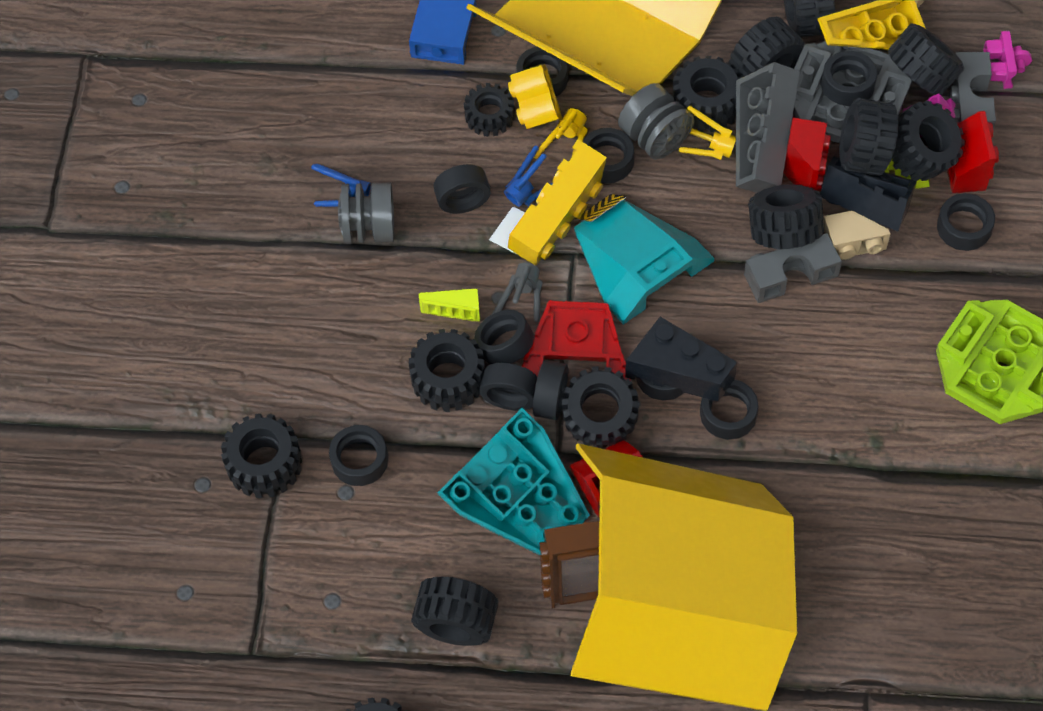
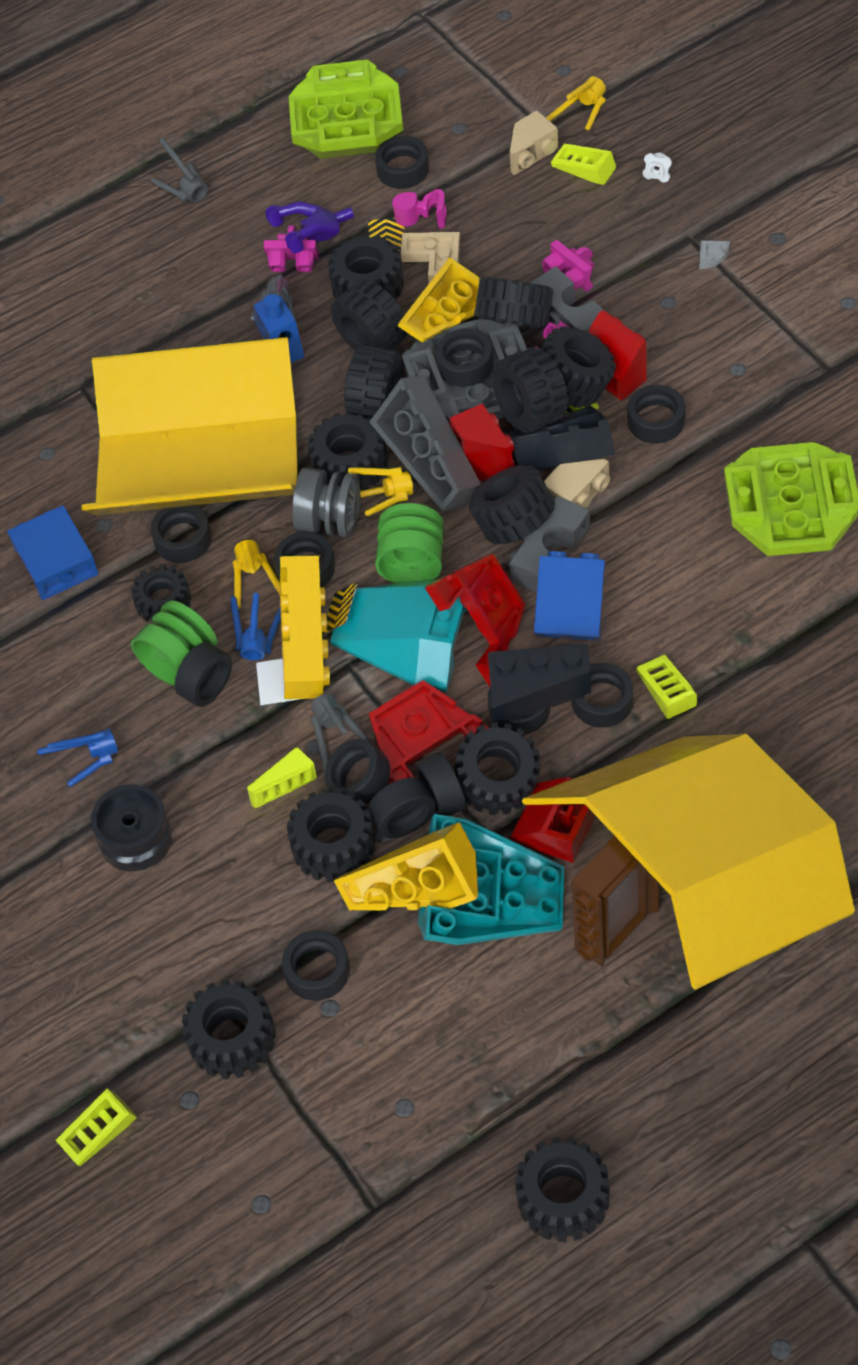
camera: 35 degrees left, 5 degrees down
(147, 458) = (104, 1136): none -> neon yellow slope
(321, 264) = (131, 827): none -> black wheel
(367, 213) = (138, 751): dark grey wheel -> none
(455, 611) = (532, 1024): black tyre -> none
(463, 148) = (169, 639): none -> bright green wheel
(476, 443) = (426, 872): none -> yellow wedge
(535, 97) = (198, 553): yellow brick -> none
(687, 194) = (409, 543): none -> bright green wheel
(704, 275) = (489, 600): none -> red wing
(765, 316) = (569, 596): none -> blue panel
(778, 456) = (670, 706): none -> neon yellow slope

